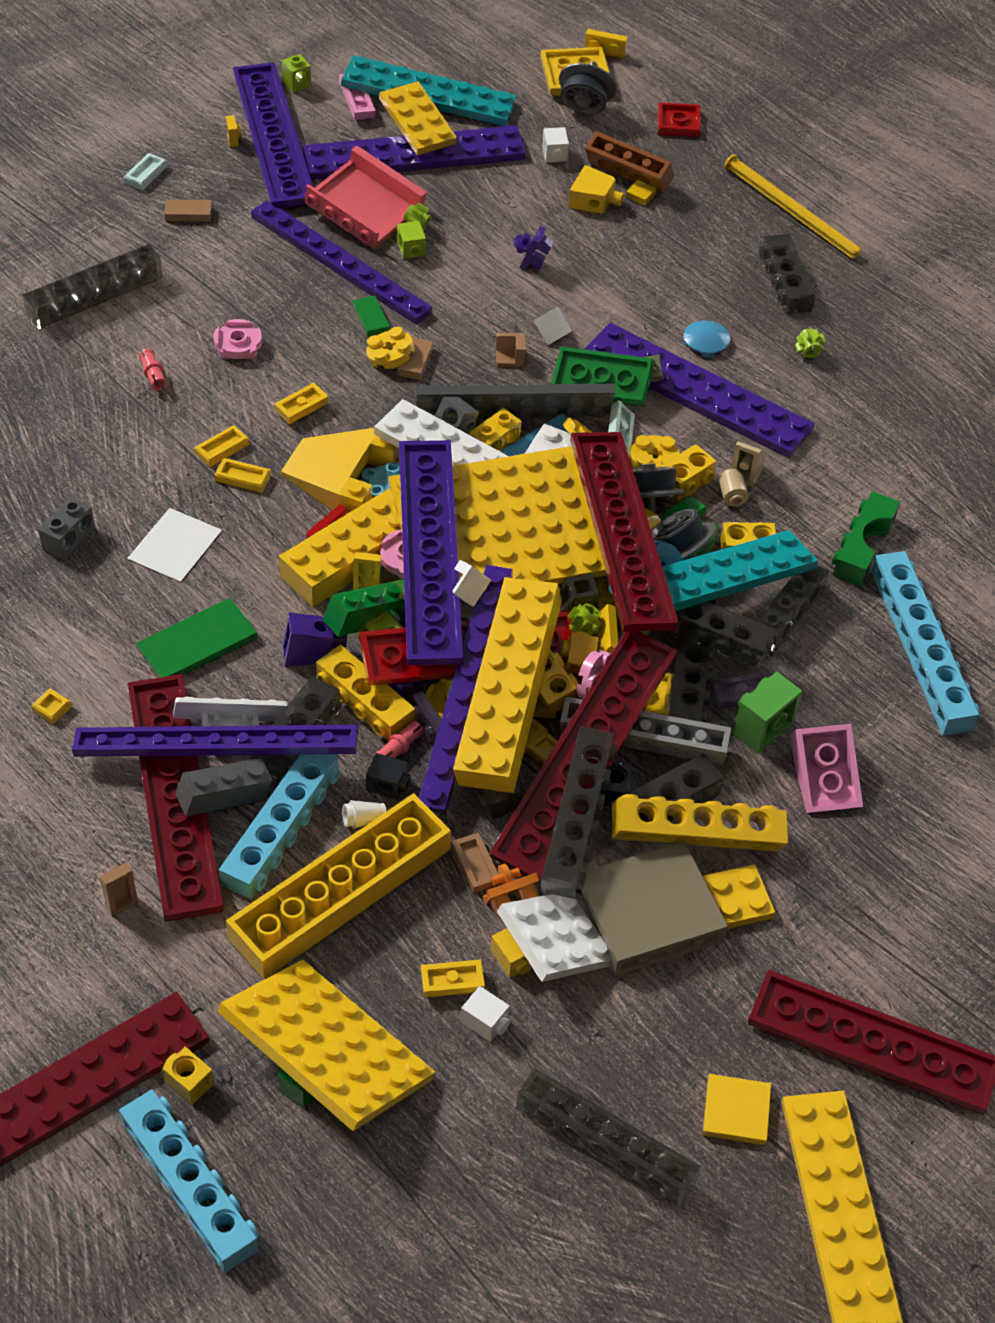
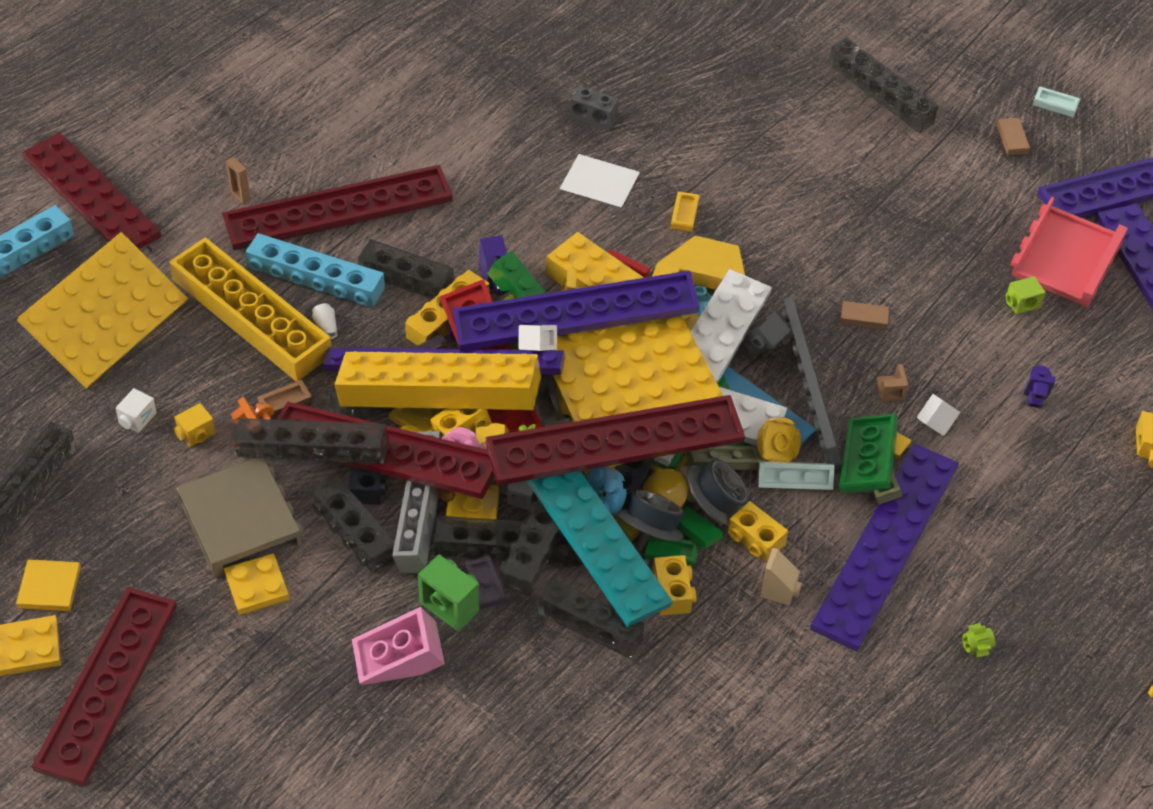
camera: 85 degrees right, 0 degrees up
(51, 706) = (418, 130): yellow tile -> none
(152, 370) = (793, 137): coral pin -> none
(189, 1087) = (86, 242): yellow brick -> none
(197, 640) = (495, 204): green tile -> none
(215, 740) = (375, 217): dark purple plate -> none
(221, 446) = (716, 194): yellow tile -> none
(223, 787) = (335, 226): dark grey brick -> none
(228, 711) = (405, 227): white bracket -> none
(229, 347) = (848, 197): bright pink plate -> none
(233, 131) = (1133, 149): yellow plate -> none
(301, 403) = (778, 238): yellow plate -> none
(342, 262) = (979, 251): dark purple plate -> none
(371, 316) = (911, 278): green tile -> none
(379, 346) = (866, 291): yellow plate -> none
(387, 776) = (362, 330): black brick -> none
(400, 742) = (397, 337): coral pin -> none
(418, 213) = (1058, 295): lime gear -> none
(451, 978) = (170, 389): yellow plate -> none
(499, 430) = (767, 374): yellow brick -> none
(555, 936) = (200, 442): white plate -> none
(629, 826) = (304, 481): yellow brick -> none
(646, 446) = (787, 498): yellow plate -> none
(706, 338) = (966, 550): dark azure dish -> none
(733, 487) = (745, 572): tan brick -> none
(787, 274) = (1124, 617): clear smoke brick -> none
(856, 558) = (670, 677): green arch -> none
(925, 644) = (573, 727): medium azure brick -> none

